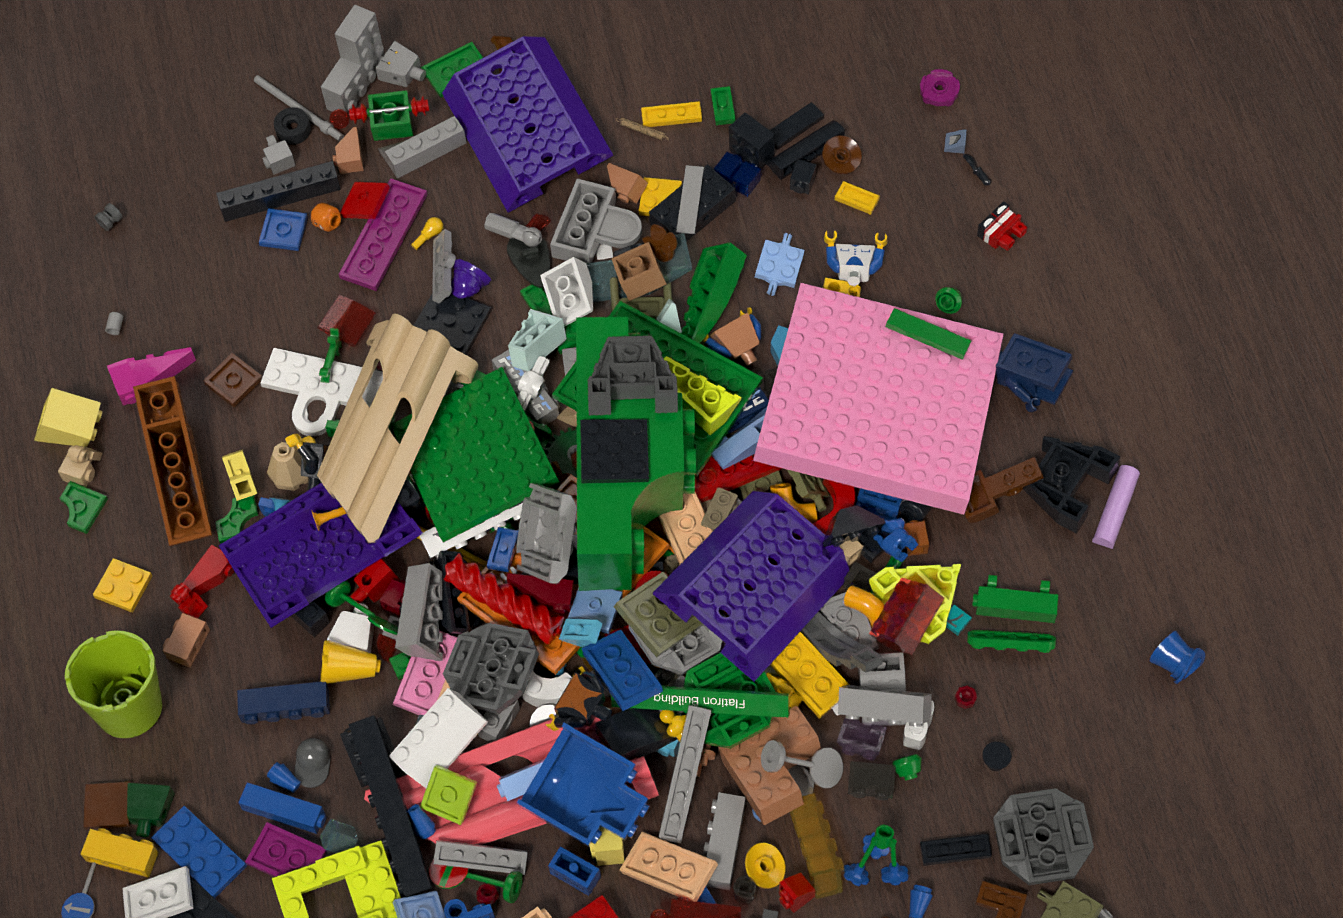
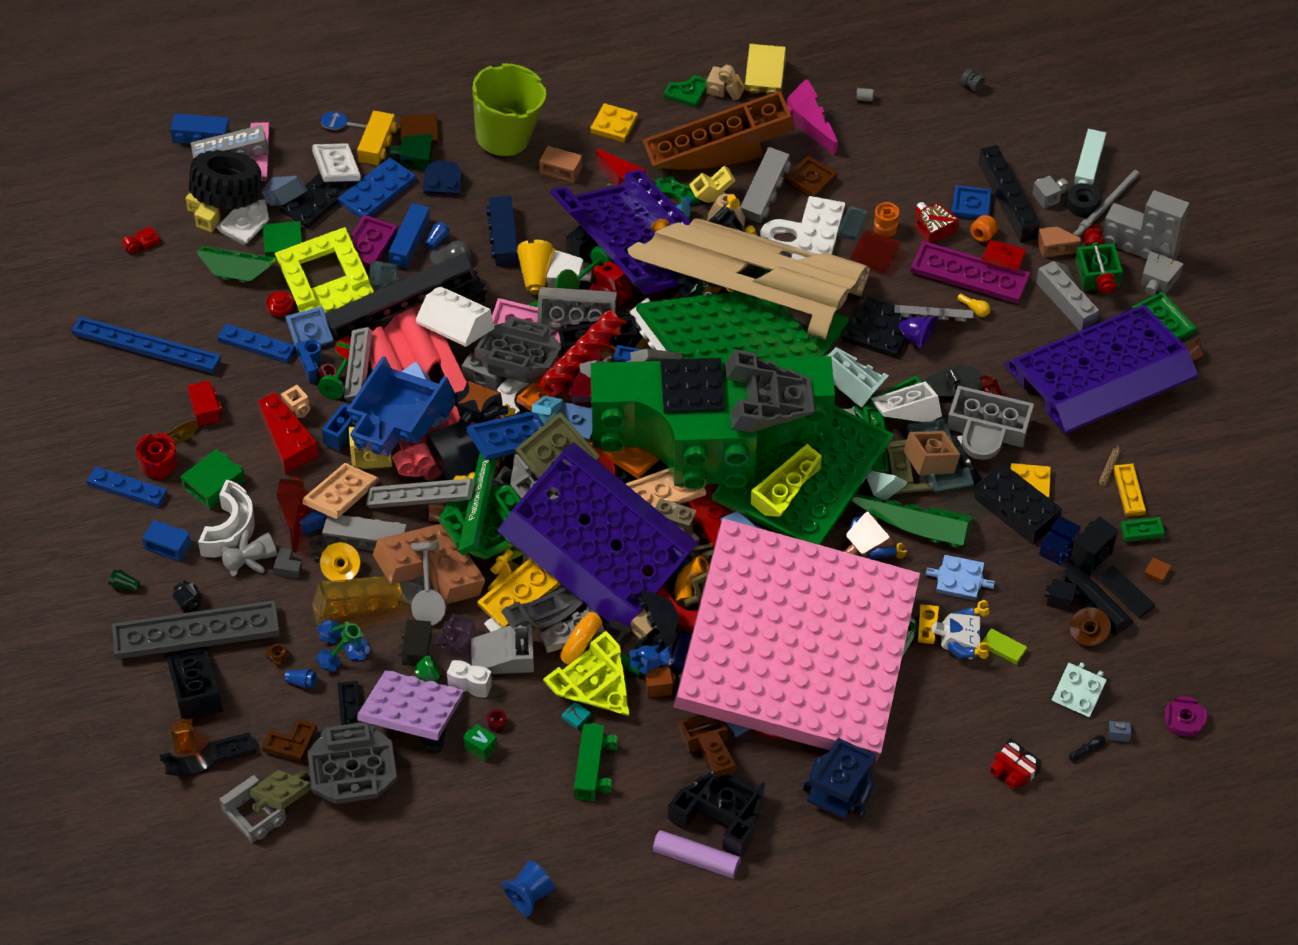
camera: 85 degrees right, 10 degrees down
(191, 603) = (591, 163): red plate -> none
(192, 773) = (442, 178): none -> dark blue slope
(238, 116) = (1090, 157): none -> light aqua brick
(245, 421) = (764, 185): none -> light grey wedge
(301, 343) = (852, 223): none -> clear light blue tile
(307, 306) = (886, 219): none -> orange wheel
(311, 263) = (934, 222): none -> torso
(335, 344) = (847, 240): green bar -> none
(421, 822) = (389, 321): blue cone -> none
(448, 794) = (408, 332): lime tile -> none
(512, 229) = (979, 365): light grey piece -> none
(626, 183) = (1039, 449): nougat slope -> none
(662, 243) = (955, 469): reddish brown plate -> none
(690, 199) = (1017, 492): light grey sticker -> none
(769, 98) = (1157, 570): none -> dark orange tile
(795, 892) = (309, 575): red slope -> none
(857, 197) = (1044, 644): yellow tile -> none
(861, 229) = (1005, 646): none -> lime tile
(884, 704) = (479, 639): light grey brick -> none
(906, 616) = (565, 654): clear red brick -> none
(912, 168) = (1079, 689): none -> light aqua plate
(928, 333) = (866, 676): green tile -> none
(948, 300) = (925, 716): green cone -> none
(961, 779) = (410, 705): none -> lavender plate
(997, 711) = (480, 742): none -> green brick
(1016, 640) = (552, 757): green plate -> none

